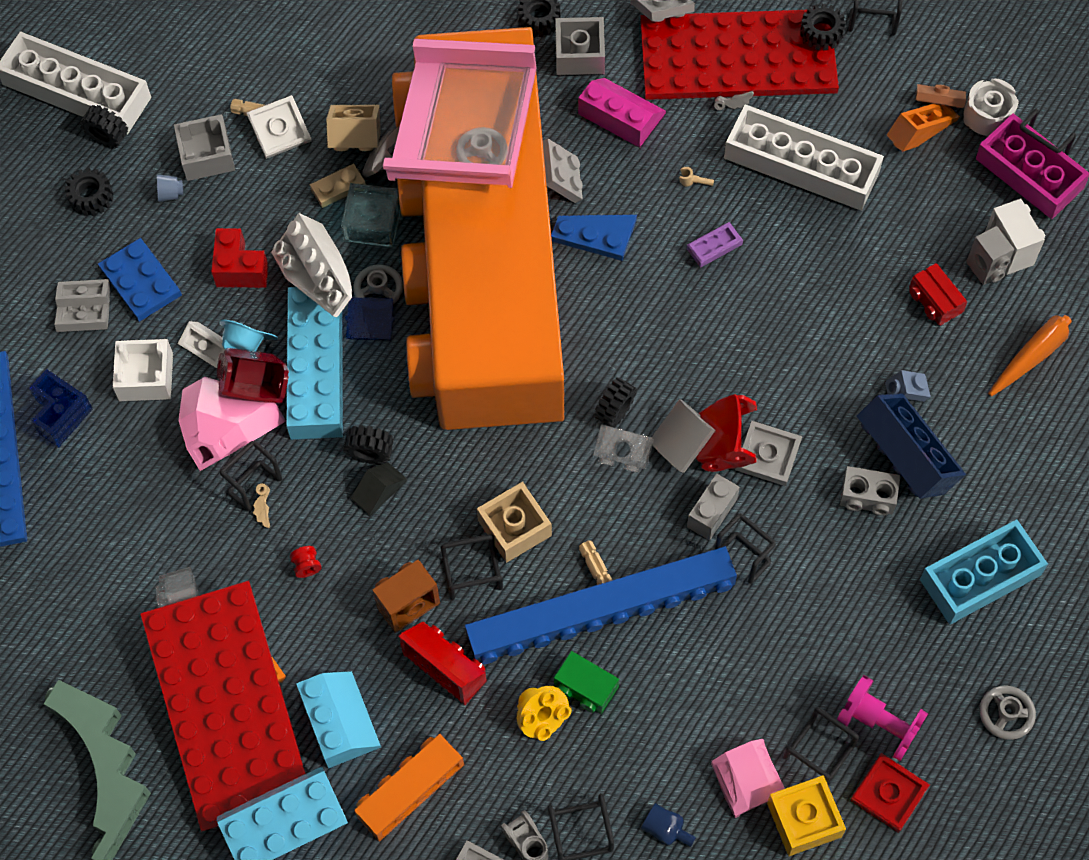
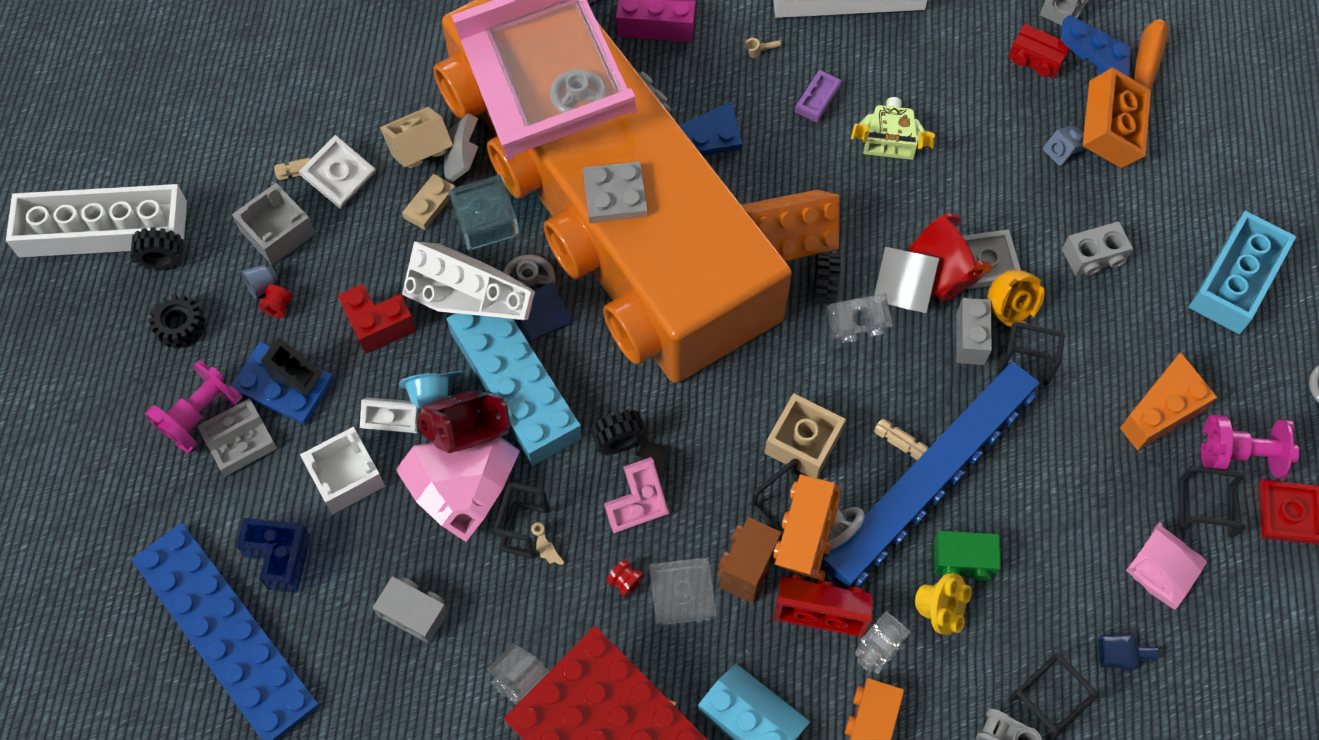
camera: 30 degrees left, 0 degrees up
(51, 268) = (186, 414): none -> dark pink piece
(131, 502) = (411, 609): none -> light grey brick
(147, 269) = (290, 367): none -> pearl dark grey slope
(170, 211) = (275, 301): none -> red wheel
(344, 595) = (682, 591): none -> clear plate
(357, 509) = (643, 503): none -> bright pink tile
(458, 592) = (808, 526): none -> orange wedge
(459, 246) = (614, 192): none -> light grey plate
(467, 713) = (881, 643): none -> clear brick
(493, 605) = (843, 529): none -> light grey piece
(606, 343) = (799, 222): none -> orange brick
(755, 303) = (892, 131): none -> yellowish green torso
(764, 496) = (1015, 296): none -> light orange cylinder
(806, 815) = (1244, 572): yellow container -> none
(838, 649) = (1170, 403): none -> orange wedge
(910, 445) = (1111, 191): dark blue brick -> none
(961, 385) = (1117, 118): none -> orange brick
(993, 319) = (1095, 45): none -> blue wing

